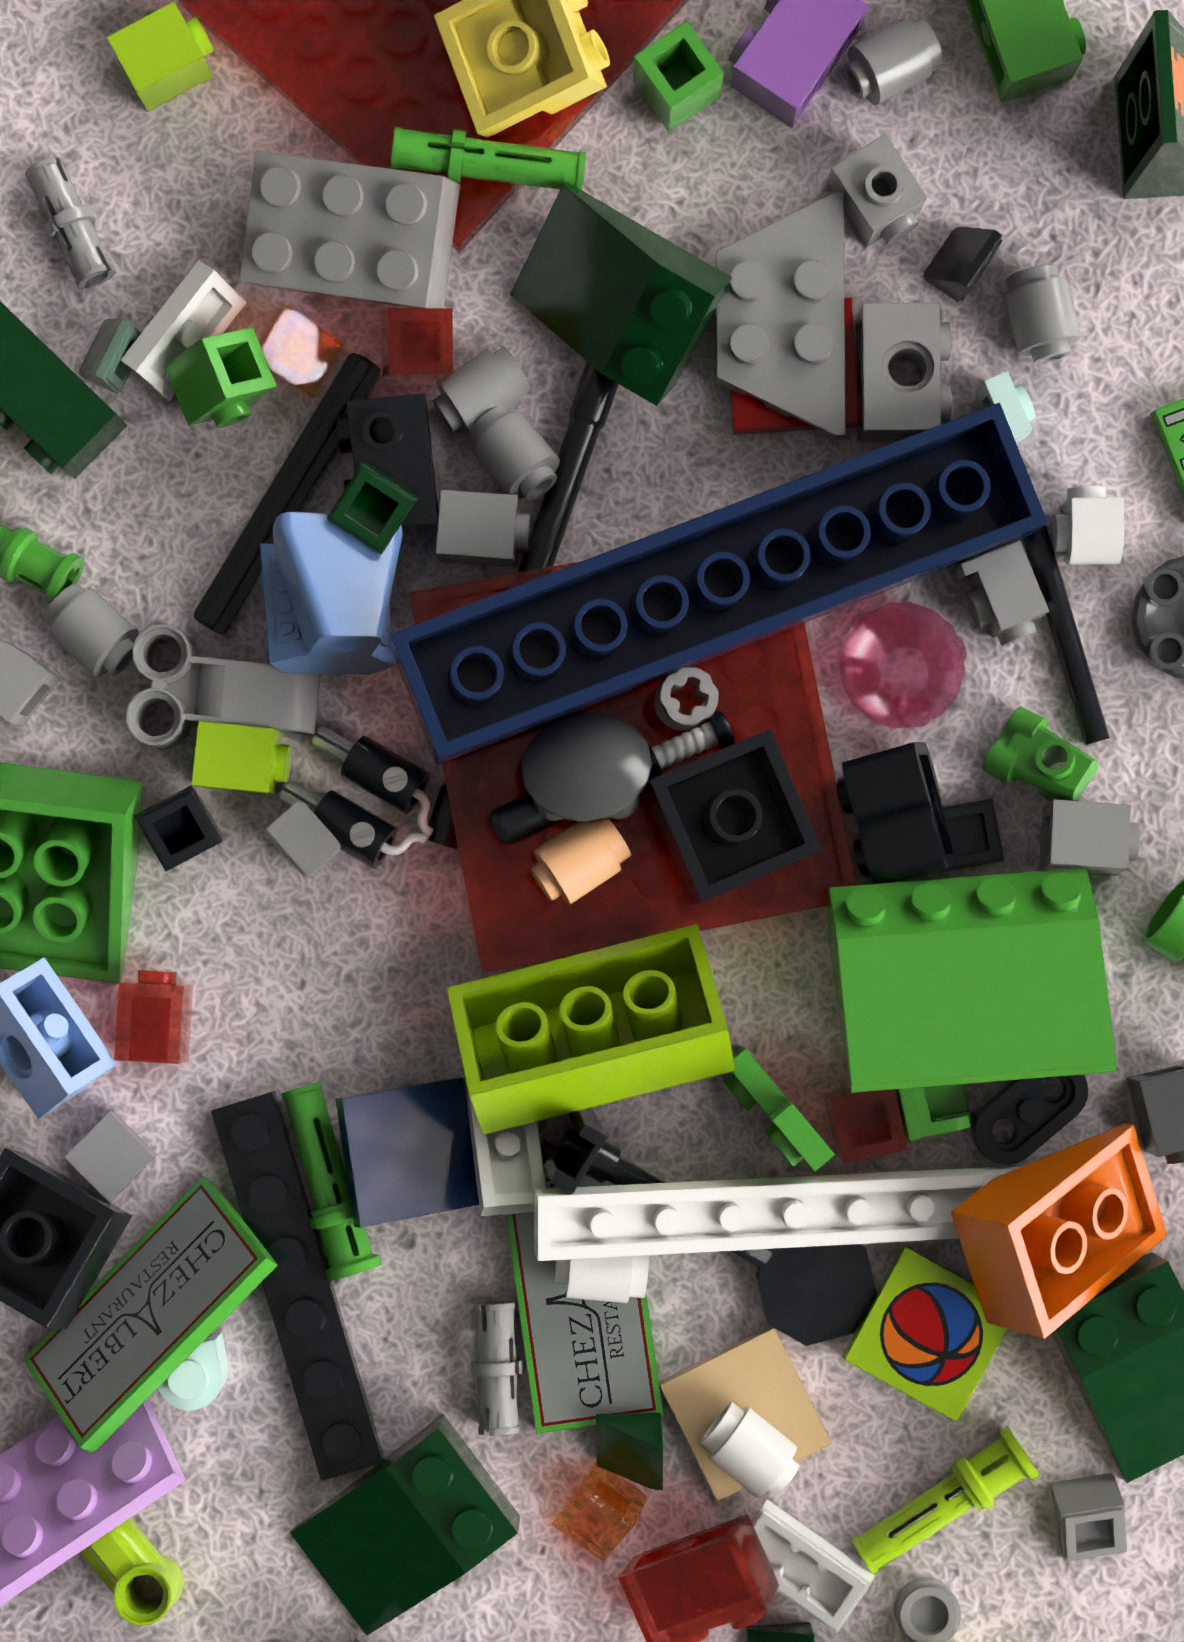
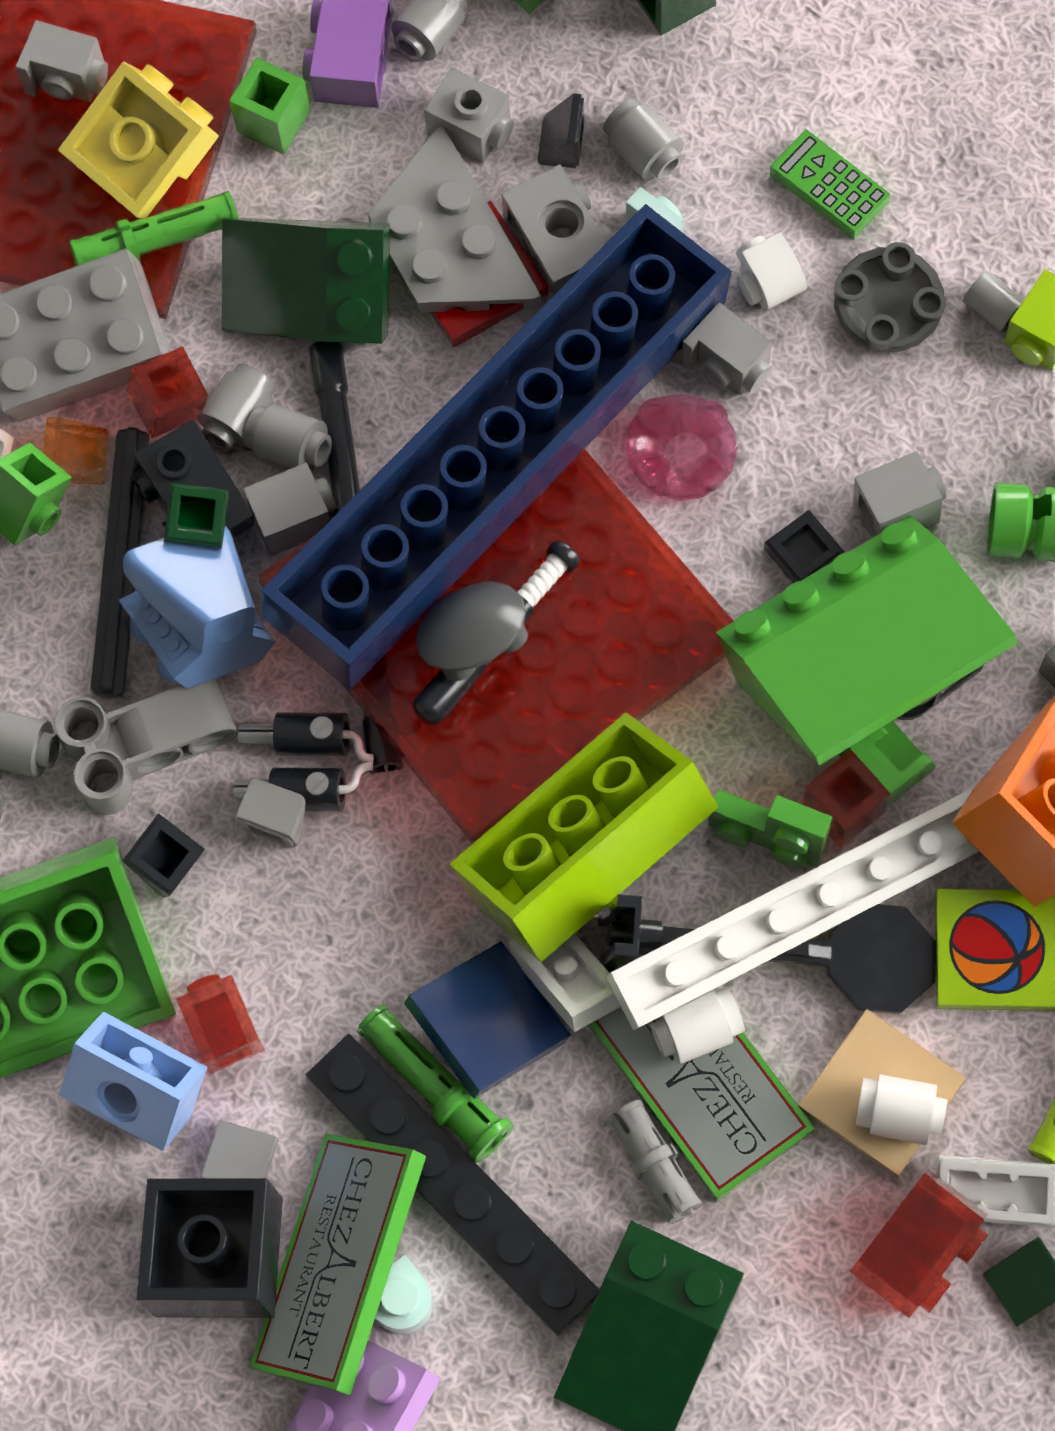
camera: 25 degrees left, 15 degrees down
(240, 758) = (186, 779): lime brick -> none
(579, 859) = (503, 702): light nougat brick -> none
(600, 1511) = (806, 1241): clear orange slope -> none
(631, 1447) = (802, 1165): dark green slope -> none
(702, 690) = (526, 525): light grey bush -> none
(731, 817) = (606, 609): black brick -> none
(897, 814) = (738, 553): black brick -> none
(1028, 752) = (827, 459): bright green plate -> none
(1031, 1115) = (972, 732): black plate -> none
(1066, 637) = (802, 367): black bar -> none

